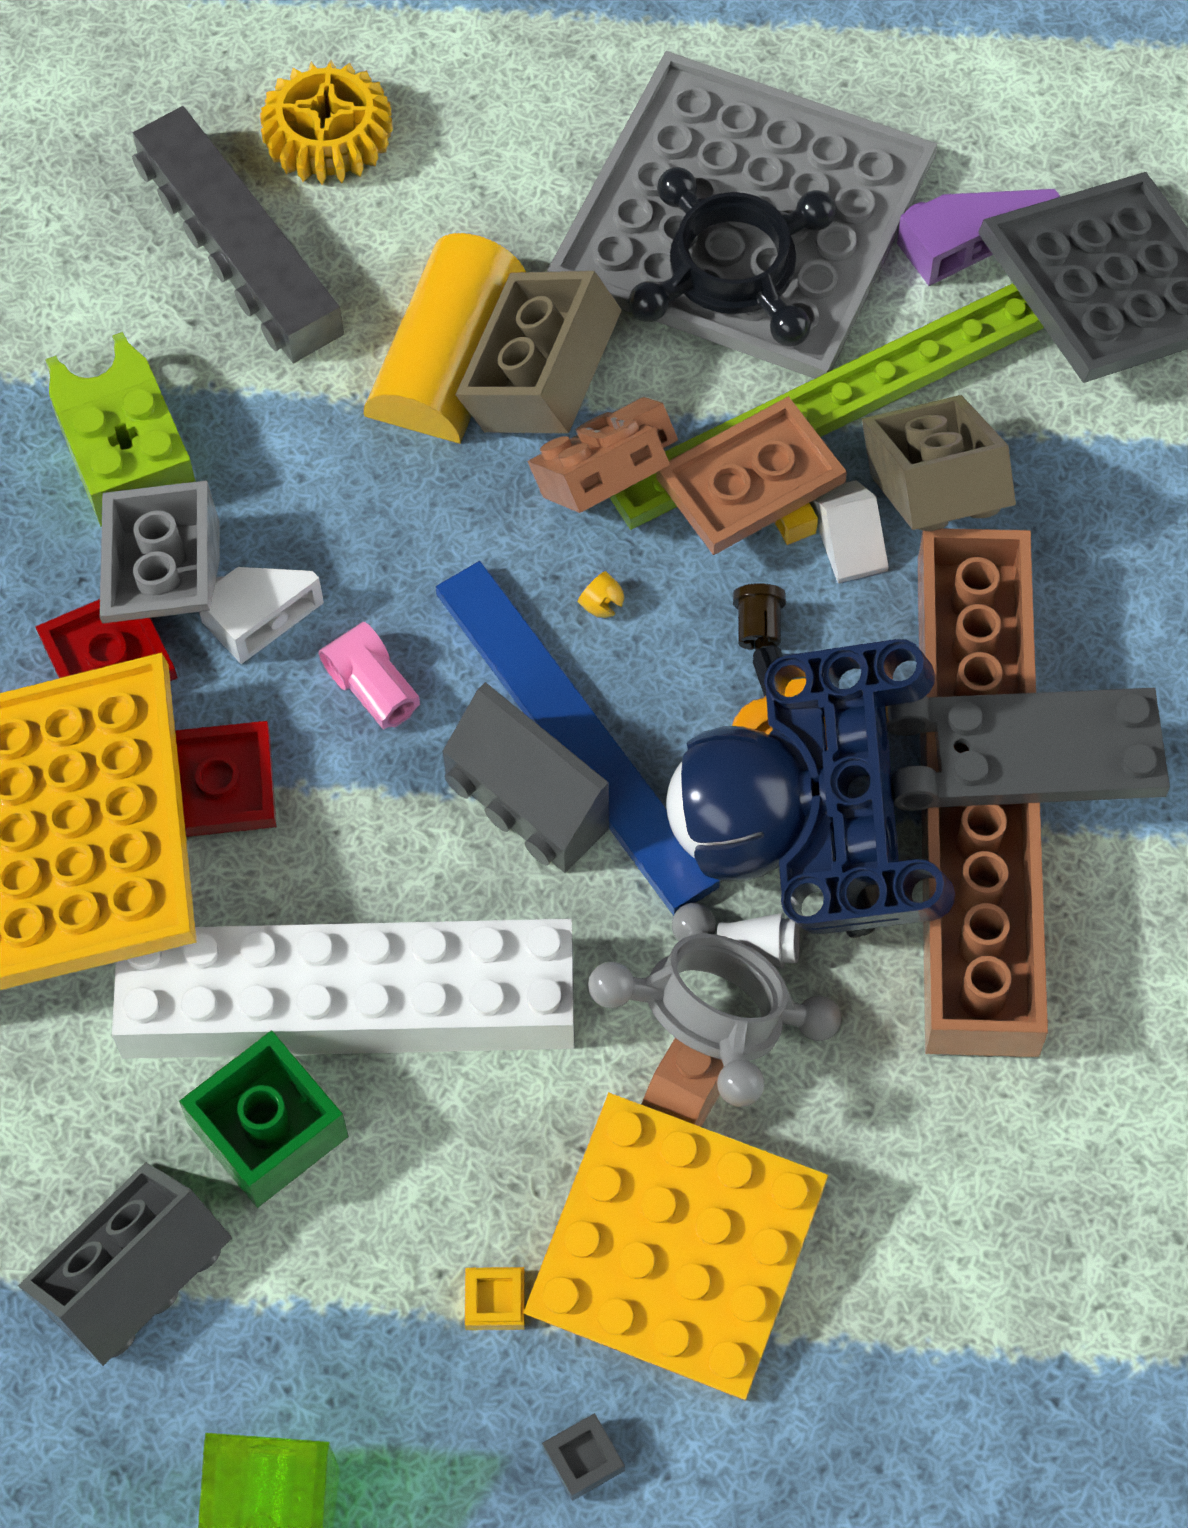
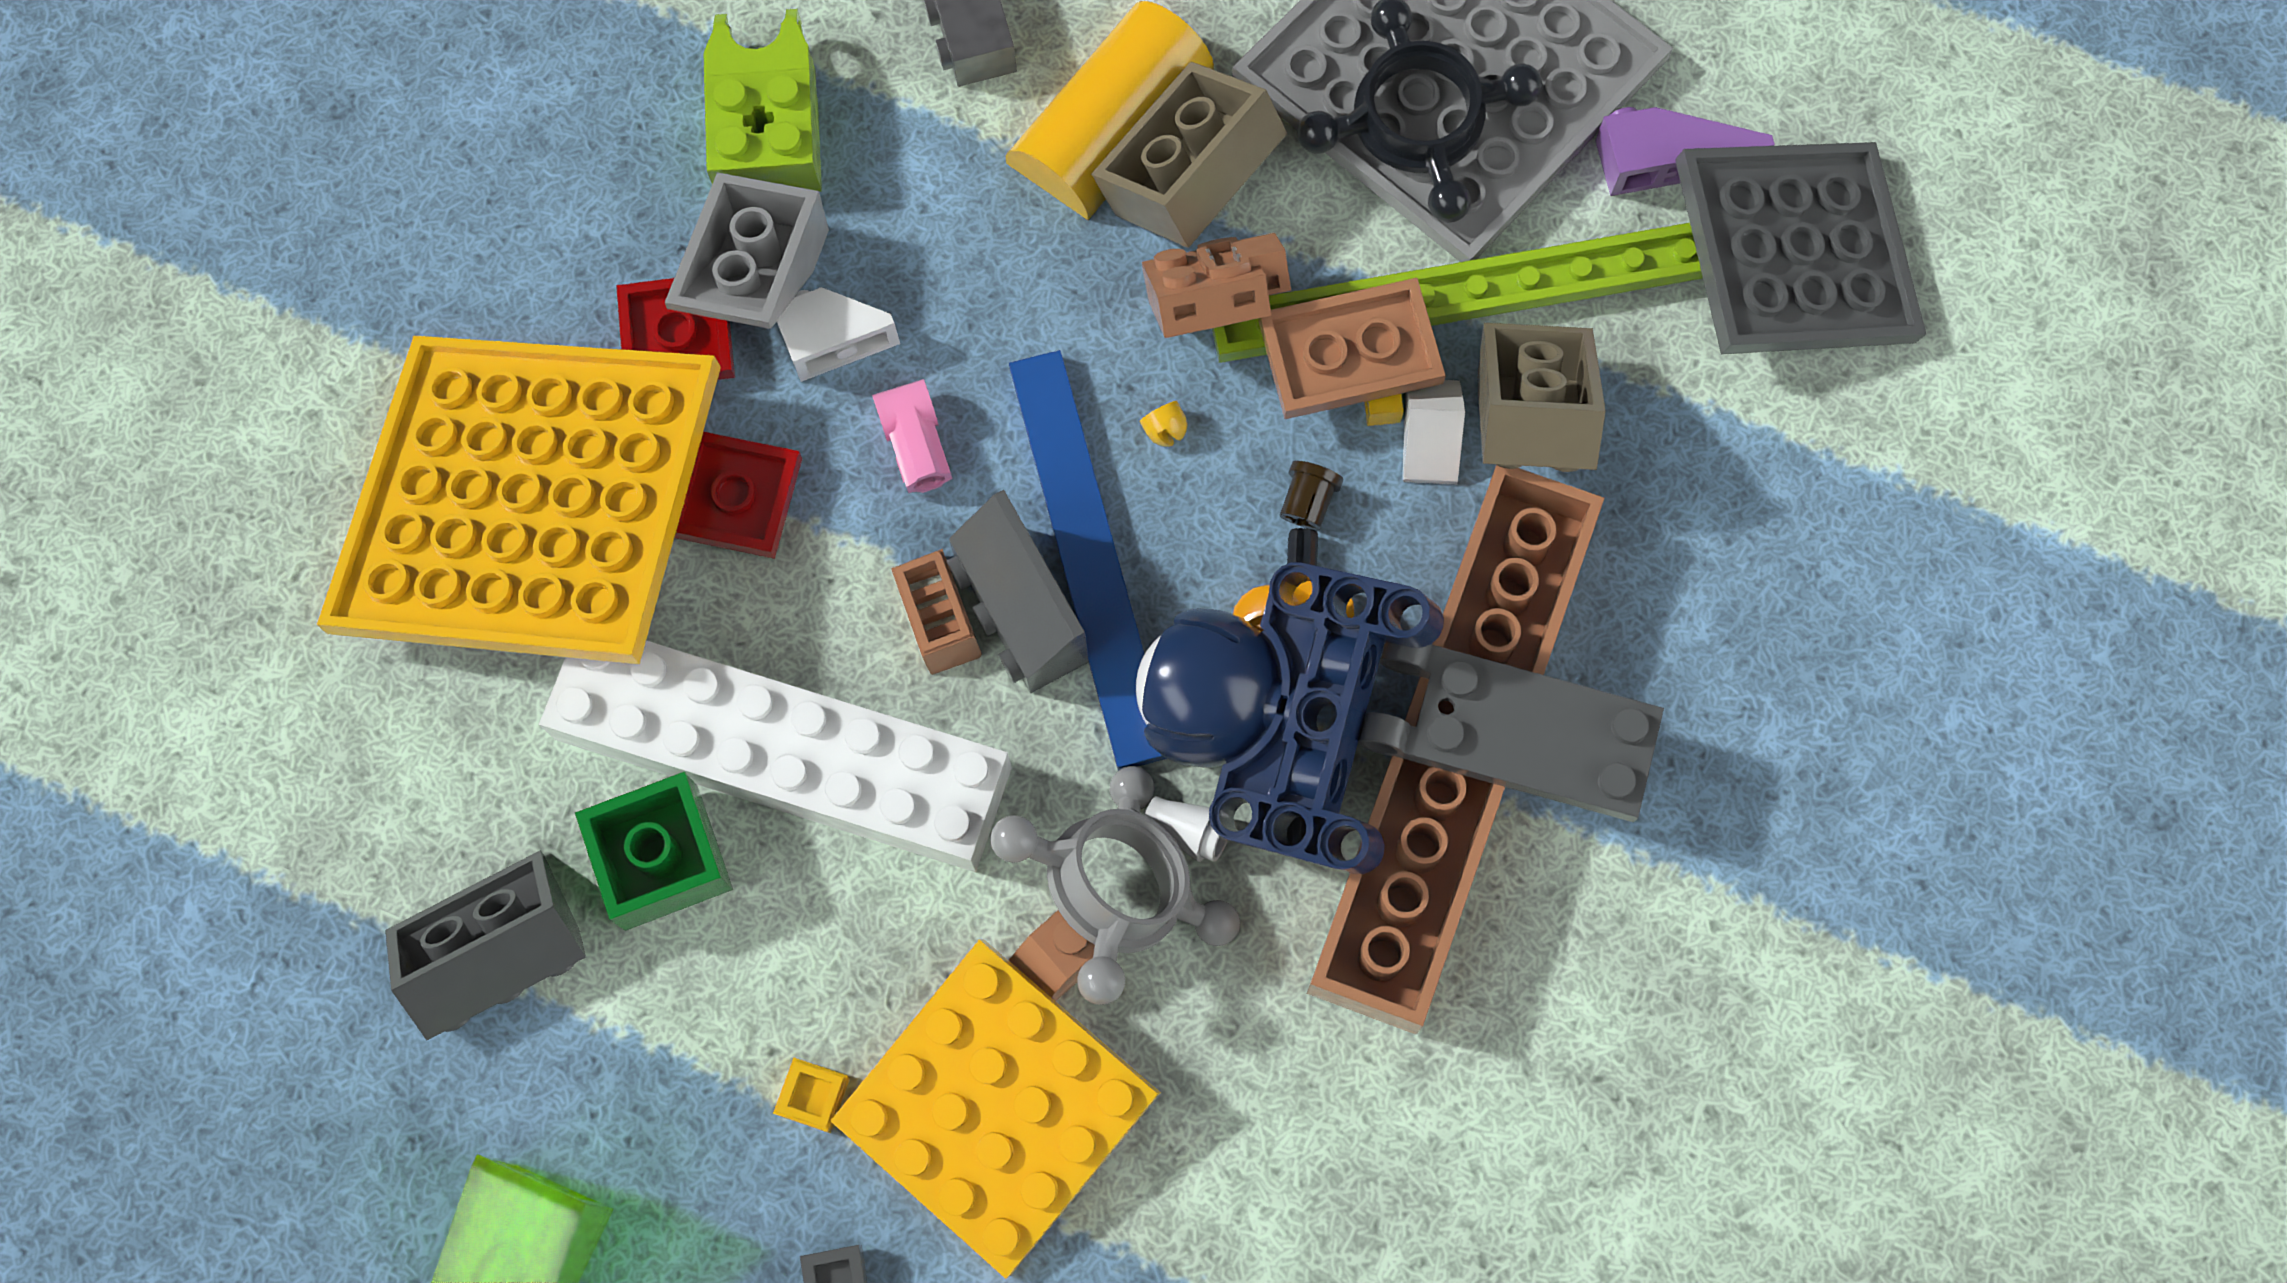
camera: 20 degrees right, 10 degrees up
(470, 852) = (947, 643): none -> nougat slope

